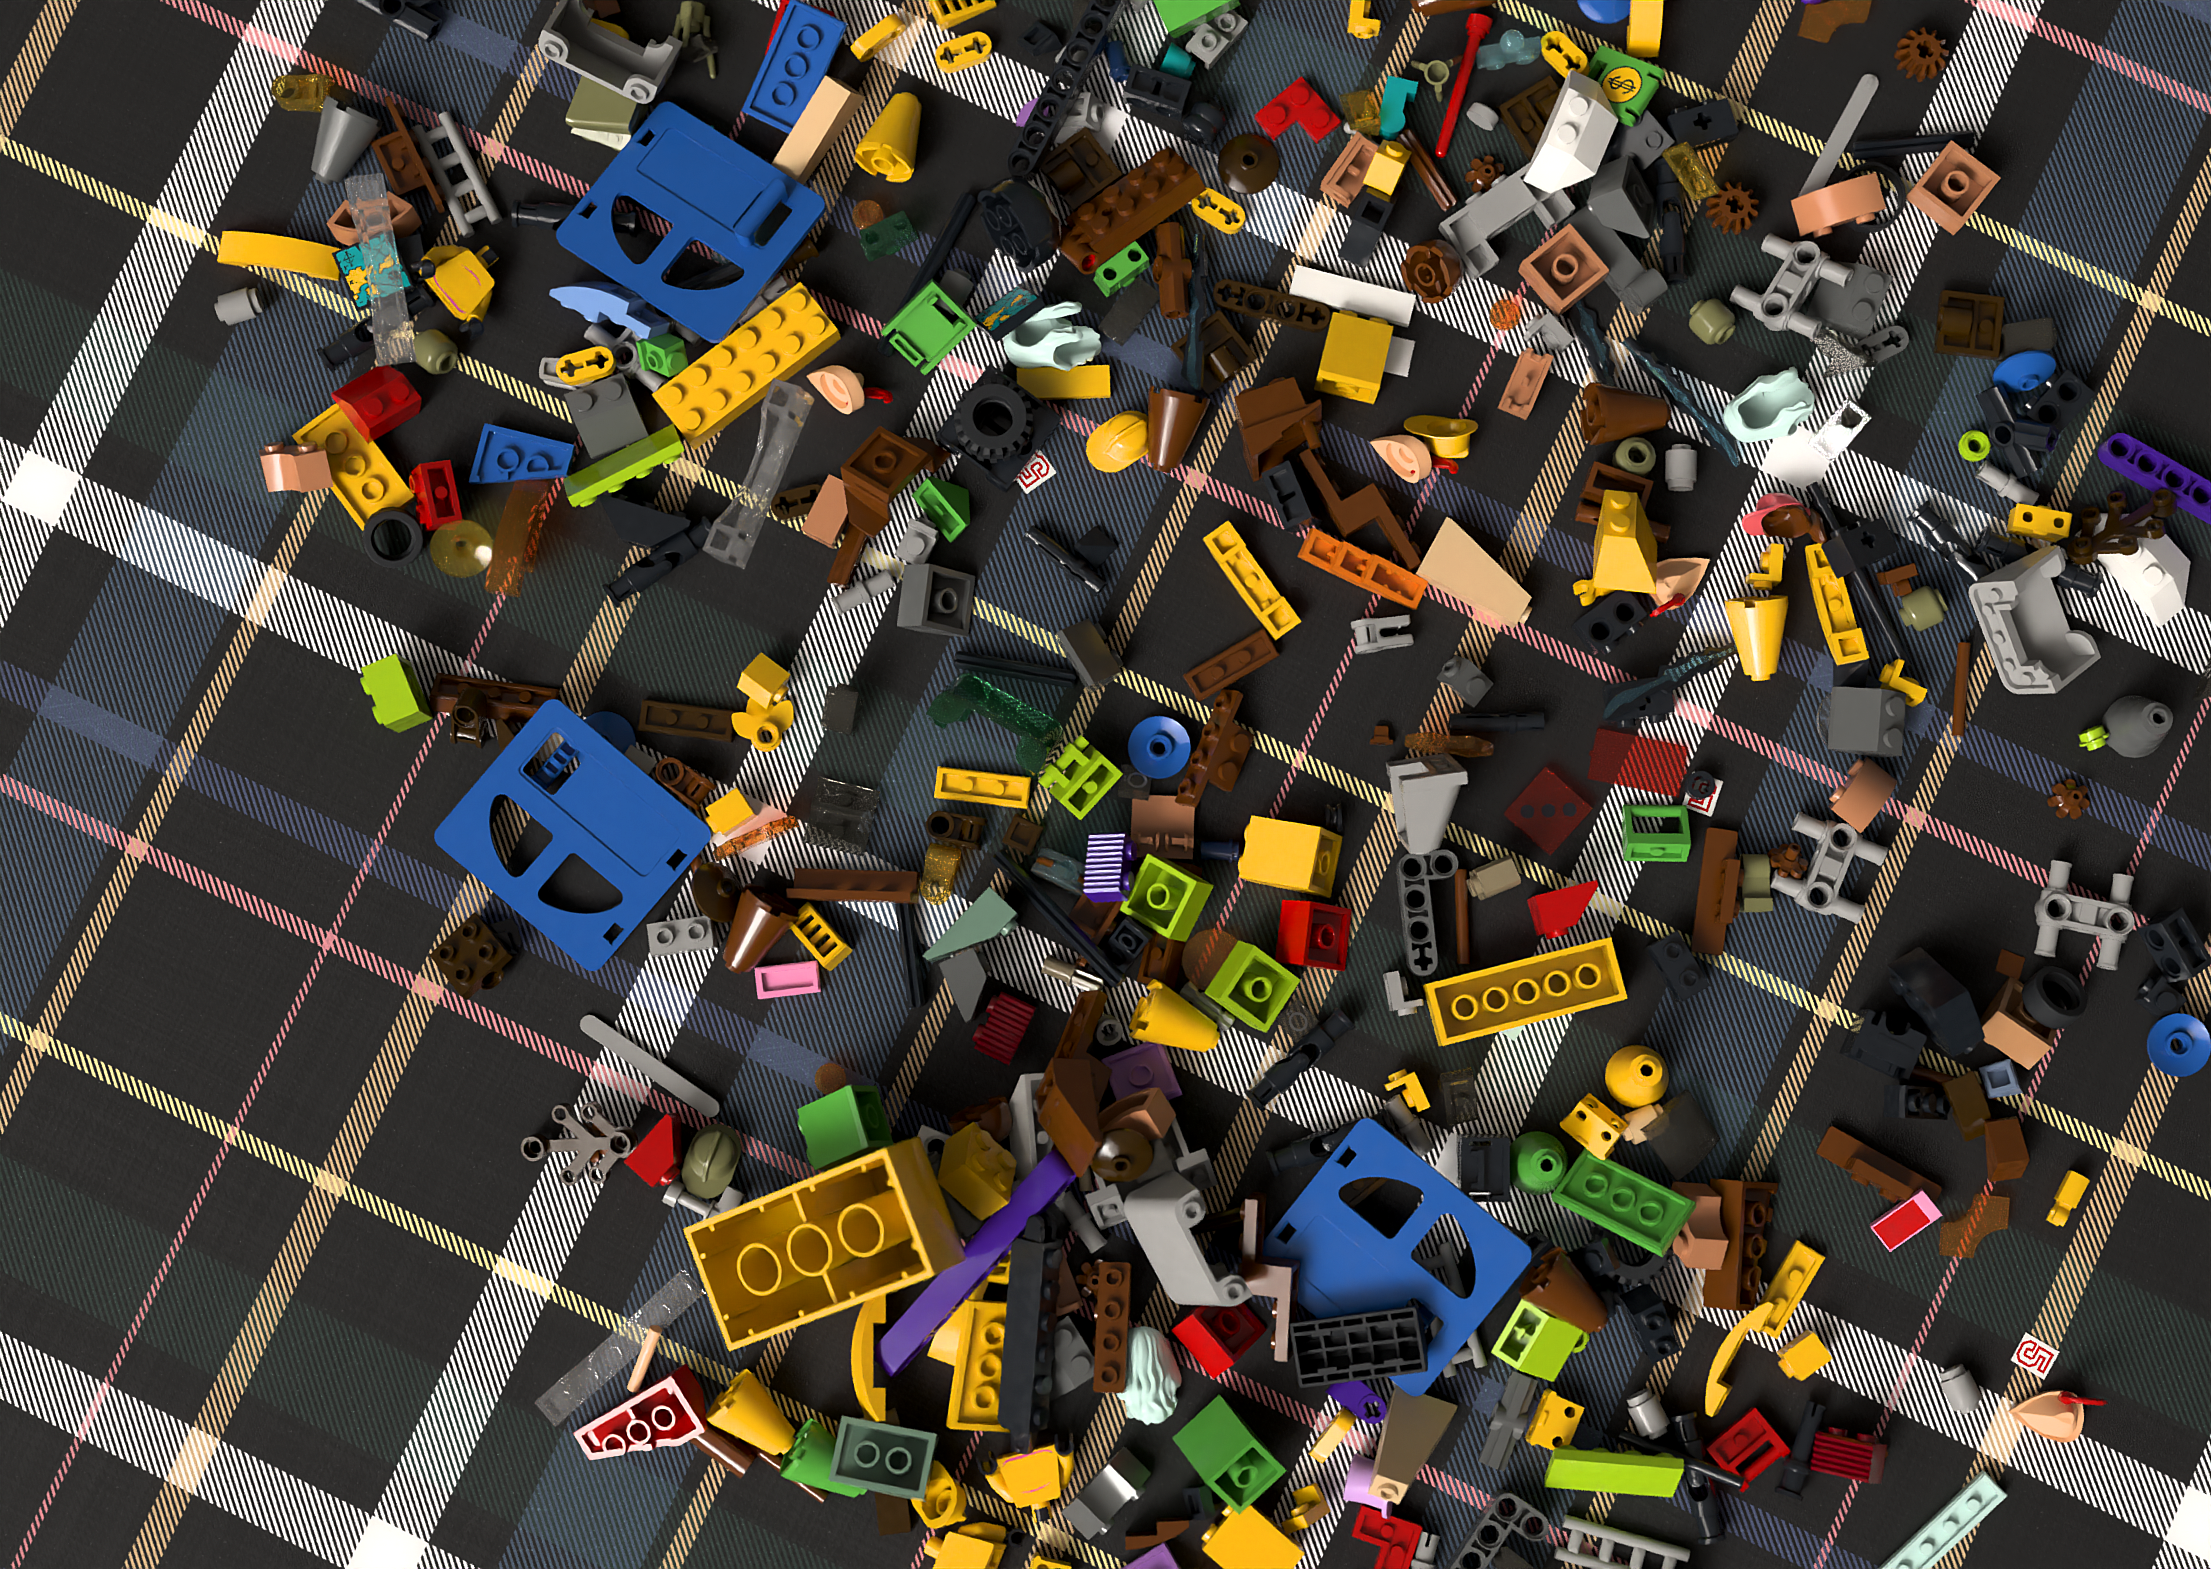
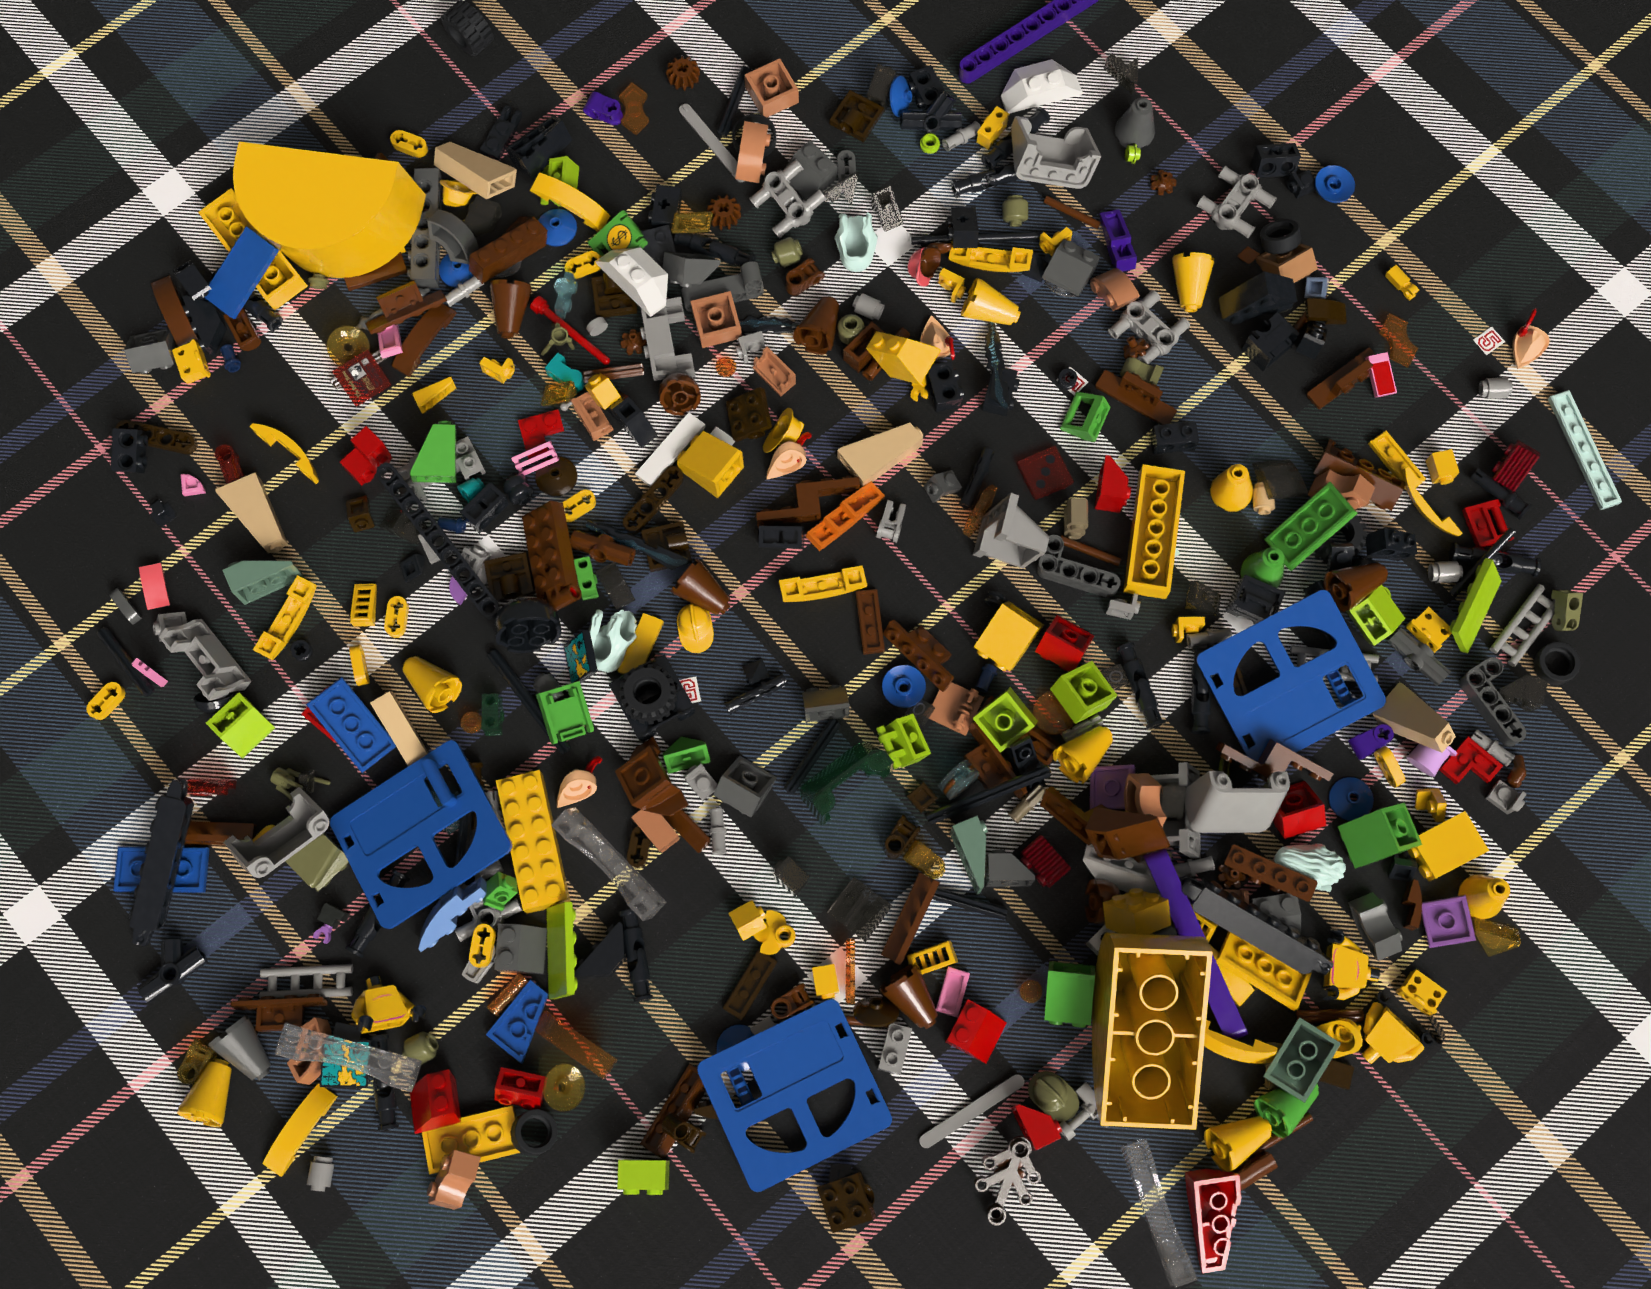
camera: 70 degrees left, 10 degrees down
(272, 126) = (208, 1095): none -> yellow cone
(546, 164) = (331, 917): none -> pearl dark grey piece
(546, 426) = (507, 994): none -> clear orange pin
(644, 1358) = (1171, 1198): light nougat piece -> none
(748, 1029) = (976, 1031): none -> red slope
(964, 1475) = (1329, 1015): none -> reddish brown axle
(982, 787) = (880, 810): yellow tile -> none
(1109, 867) = (970, 746): dark purple brick -> none
(1117, 1029) = (1078, 795): light grey bush -> none
(1125, 1146) = (1167, 811): dark brown dish -> none
(1238, 109) = (518, 465): none -> bright pink tile
(1264, 1384) = (1342, 804): none -> blue dish
(1275, 423) = (729, 526): reddish brown piece -> none
(1359, 1346) = (1342, 722): black piece -> none
(1381, 736) = (955, 550): reddish brown piece -> none
(1446, 377) = (749, 415): none -> dark brown plate
(1592, 1129) = (1256, 528): yellow piece -> none
(1637, 762) = (1037, 409): clear red piece -> none
(1683, 399) = (827, 288): black sword -> none
(1687, 361) = (806, 274): none -> reddish brown piece
(1898, 579) = (990, 216): reddish brown tile -> none
(1928, 898) = (1192, 278): none -> yellow cone
(1944, 771) = (1118, 240): none -> dark purple slope
(2005, 1149) = (1360, 301): reddish brown slope -> none
(2088, 546) = (1020, 106): dark brown plant -> none

